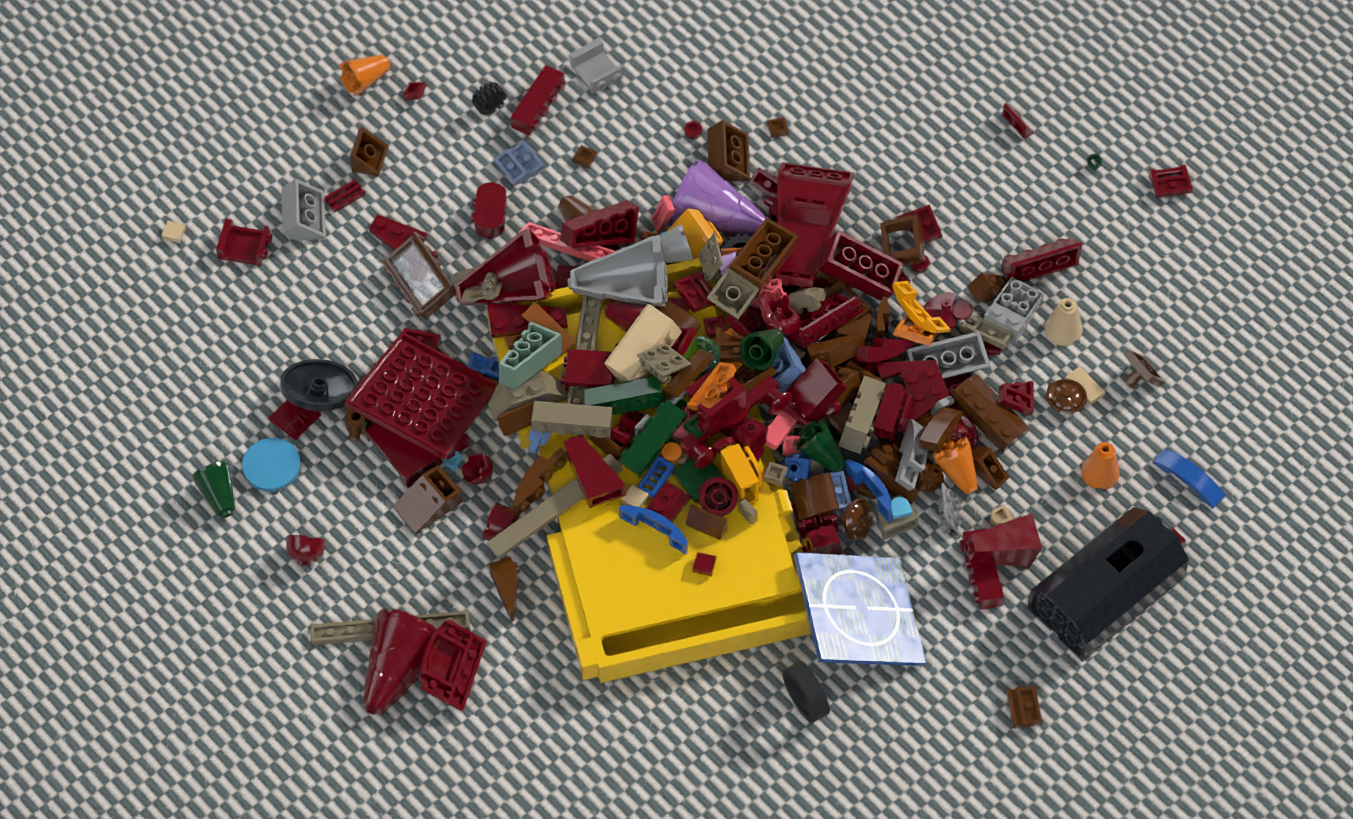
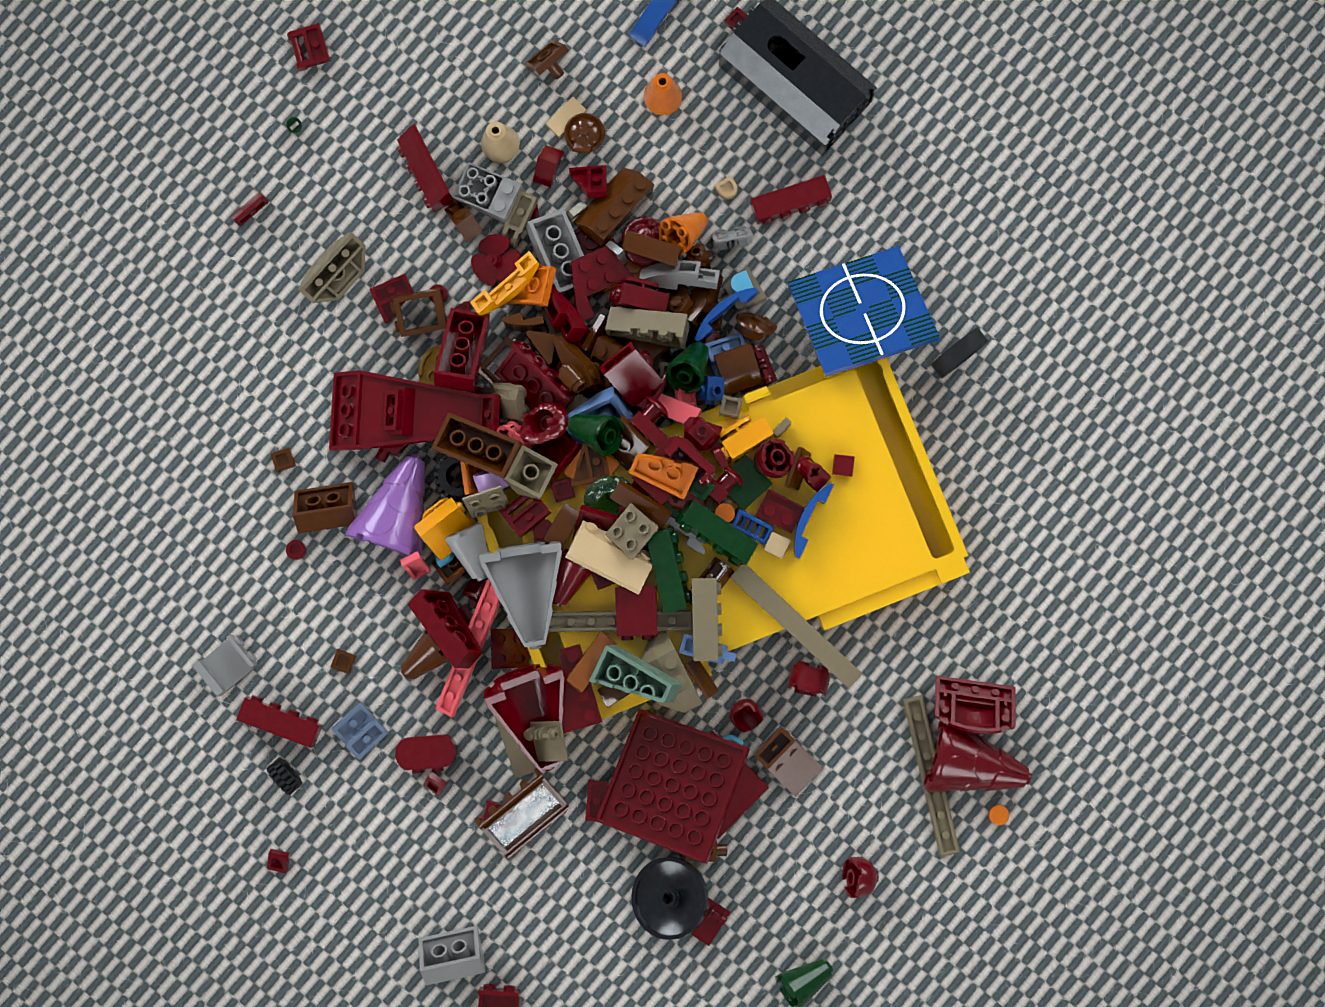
camera: 90 degrees left, 25 degrees up
(271, 464) = (762, 931): dark azure tile -> none
(340, 682) = (998, 814): none -> orange tile
(342, 194) = (433, 926): dark red tile -> none
(363, 72) = (262, 920): orange cone -> none
(367, 153) = (368, 897): reddish brown slope -> none
(392, 232) = (466, 849): dark red wing -> none
(460, 214) = (435, 783): none -> dark red tile
(484, 365) = (617, 729): blue slope -> none
(505, 578) = (874, 664): reddish brown slope -> none
(532, 483) = (779, 652): reddish brown slope -> none
(592, 473) = (762, 590): dark red slope -> none
(626, 428) = (698, 563): dark red slope -> none
(700, 530) = (812, 472): none -> dark red piece
(764, 182) = (356, 463): dark red slope -> none
(818, 339) = (572, 378): none -> reddish brown brick
(822, 541) = (787, 357): dark red torso -> none
(948, 178) = (335, 270): none -> dark tan wedge
(988, 377) = (576, 210): none -> tile
(988, 467) = (675, 203): reddish brown slope -> none
(1006, 544) = (770, 175): dark red slope -> none
(1024, 706) = (933, 149): reddish brown plate -> none
(1038, 363) = (547, 166): none -> dark red slope

